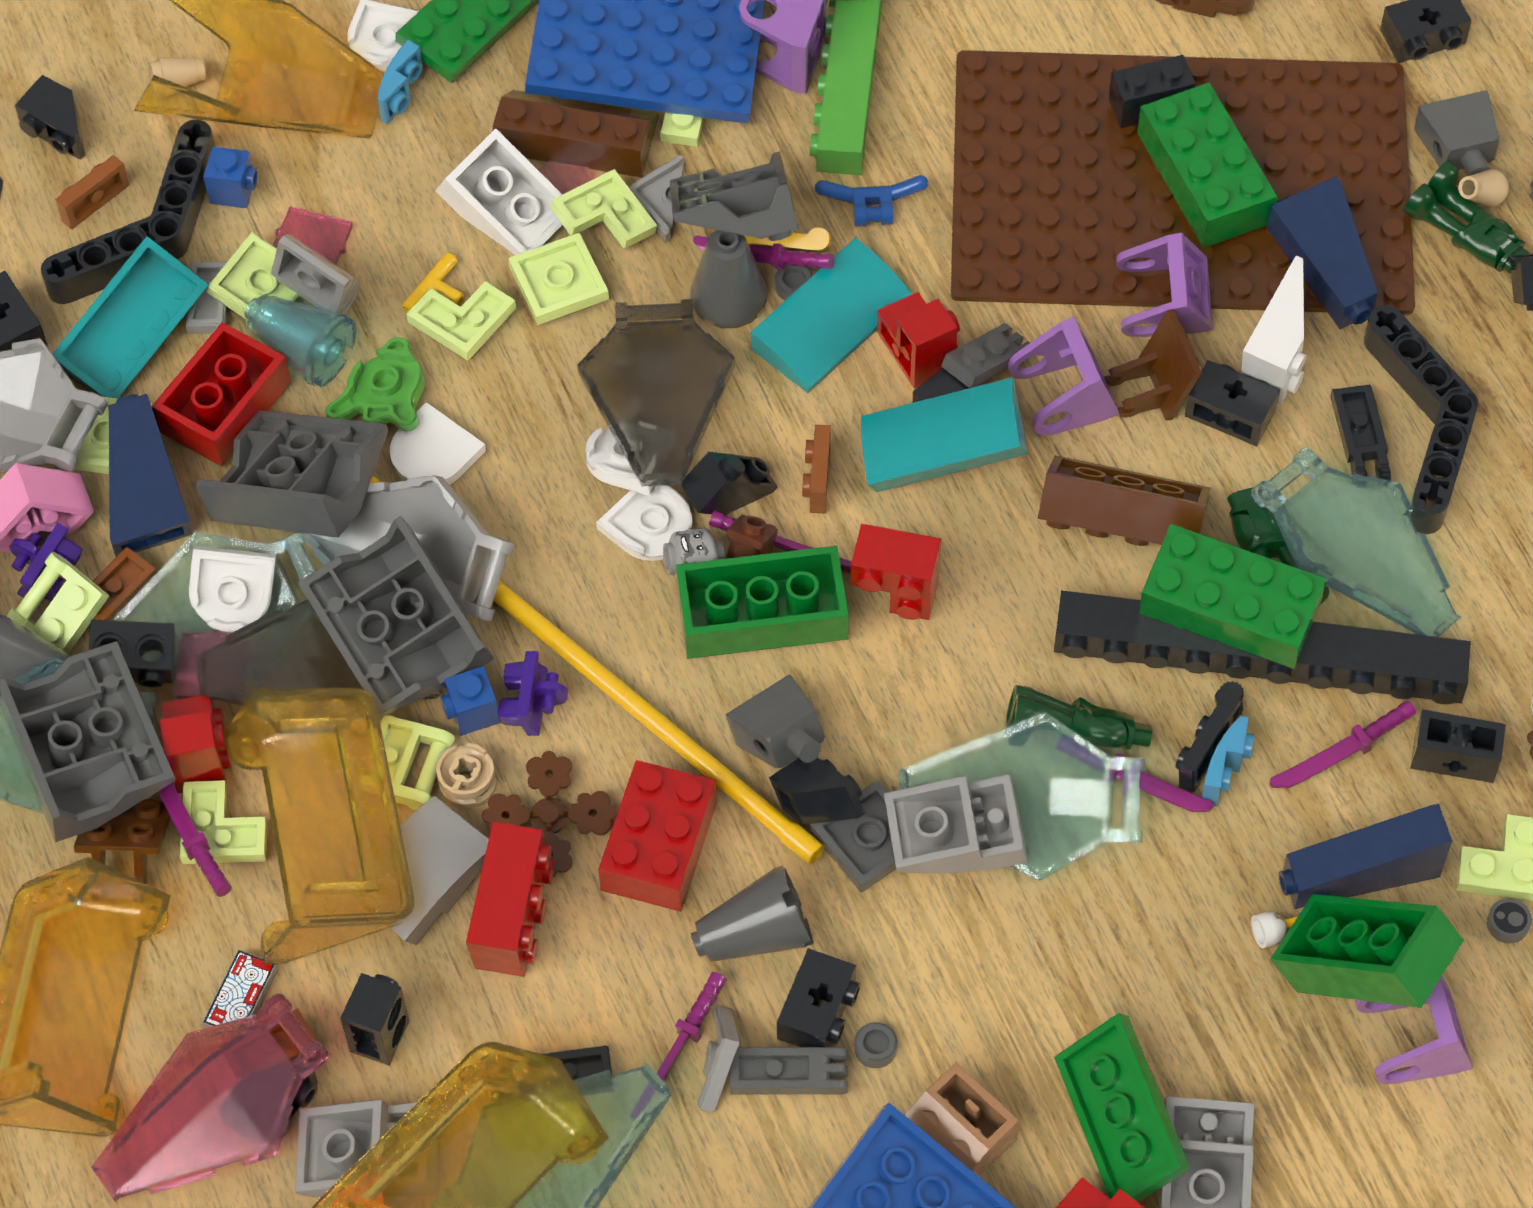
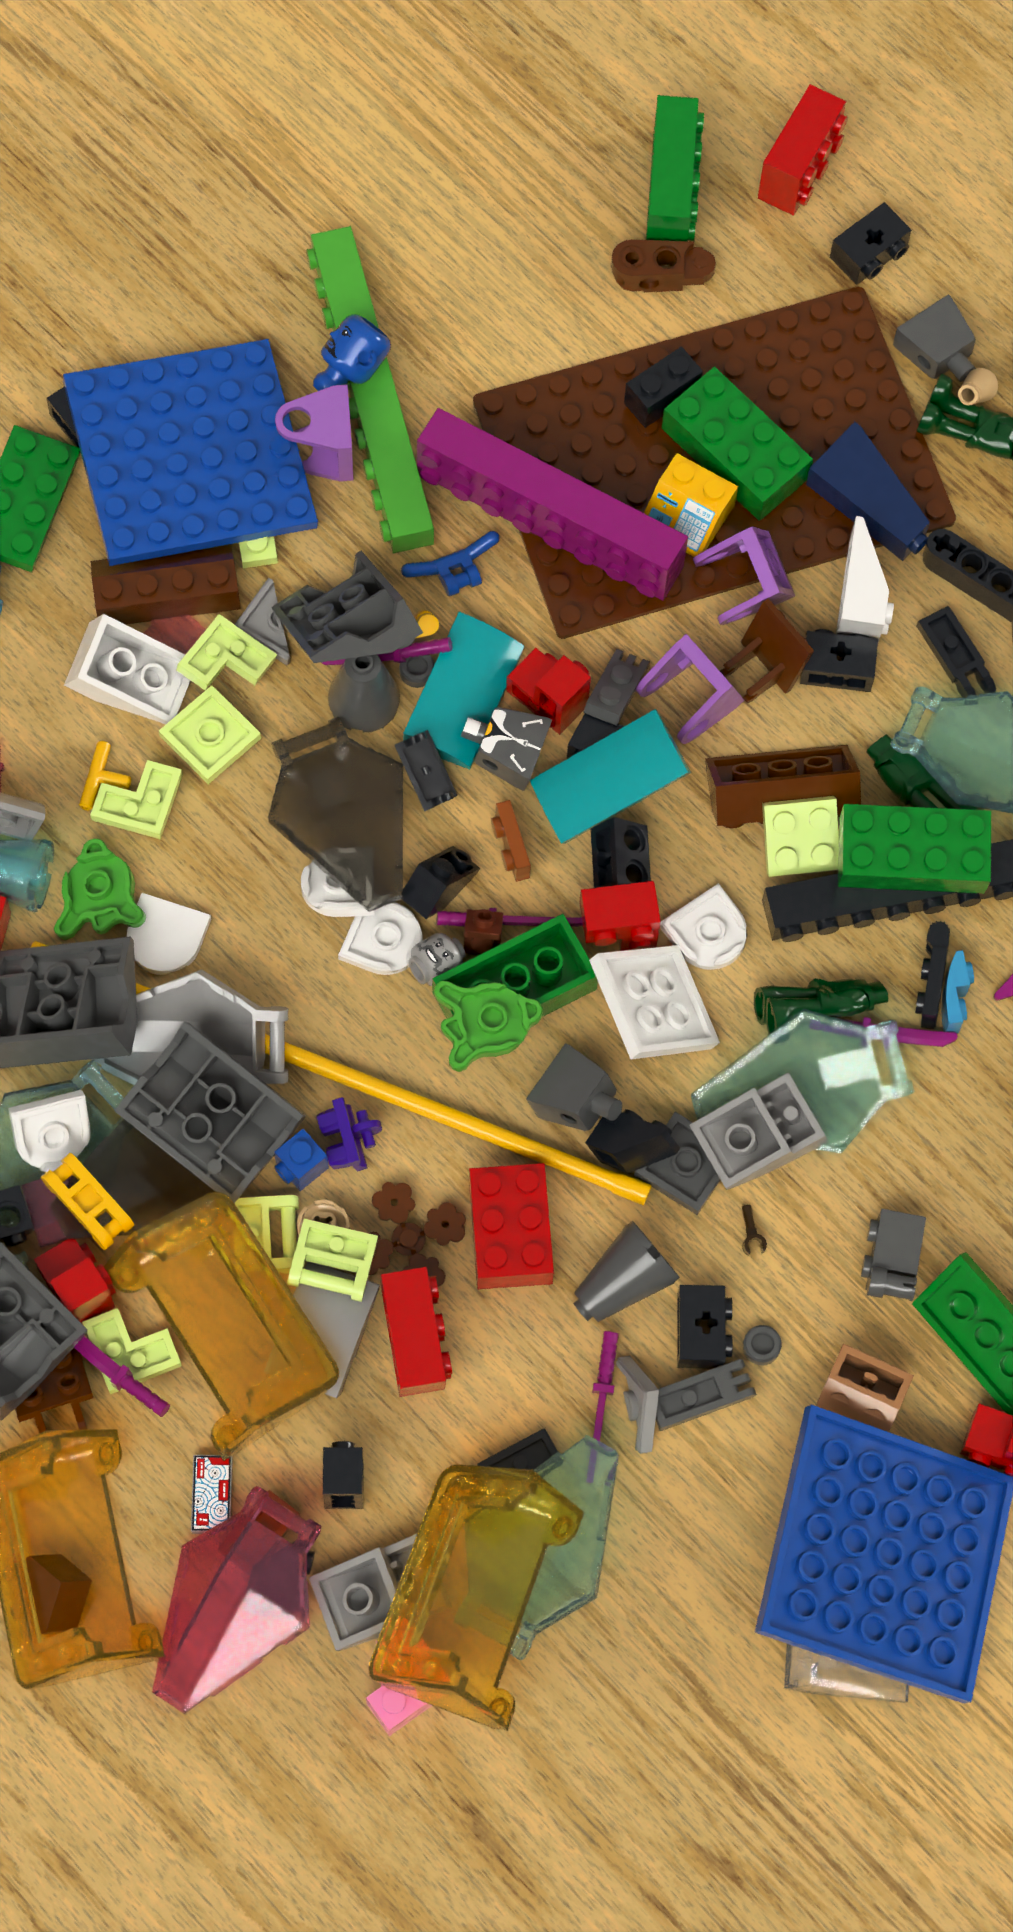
camera: 25 degrees left, 10 degrees up
(39, 1030) = (57, 1592): none -> reddish brown slope
(231, 656) = (87, 1200): none -> yellow plate
(462, 790) = (337, 1249): none -> yellowish green plate
(711, 620) = (485, 1020): none -> bright green tile
(757, 373) = (426, 770): none -> black hinge
(855, 375) = (508, 743): none -> dark grey torso
(898, 662) = (654, 1001): none -> white plate
(911, 928) = (751, 1231): none -> dark brown hand
(927, 508) = (620, 853): none -> black brick
(988, 619) = (708, 930): none -> white tile
(989, 163) = (550, 504): none -> magenta brick
(1054, 999) = (894, 1254): none -> dark grey hinge
(1118, 553) = (801, 836): none -> yellowish green plate
(1132, 205) = (692, 502): none -> yellow slope

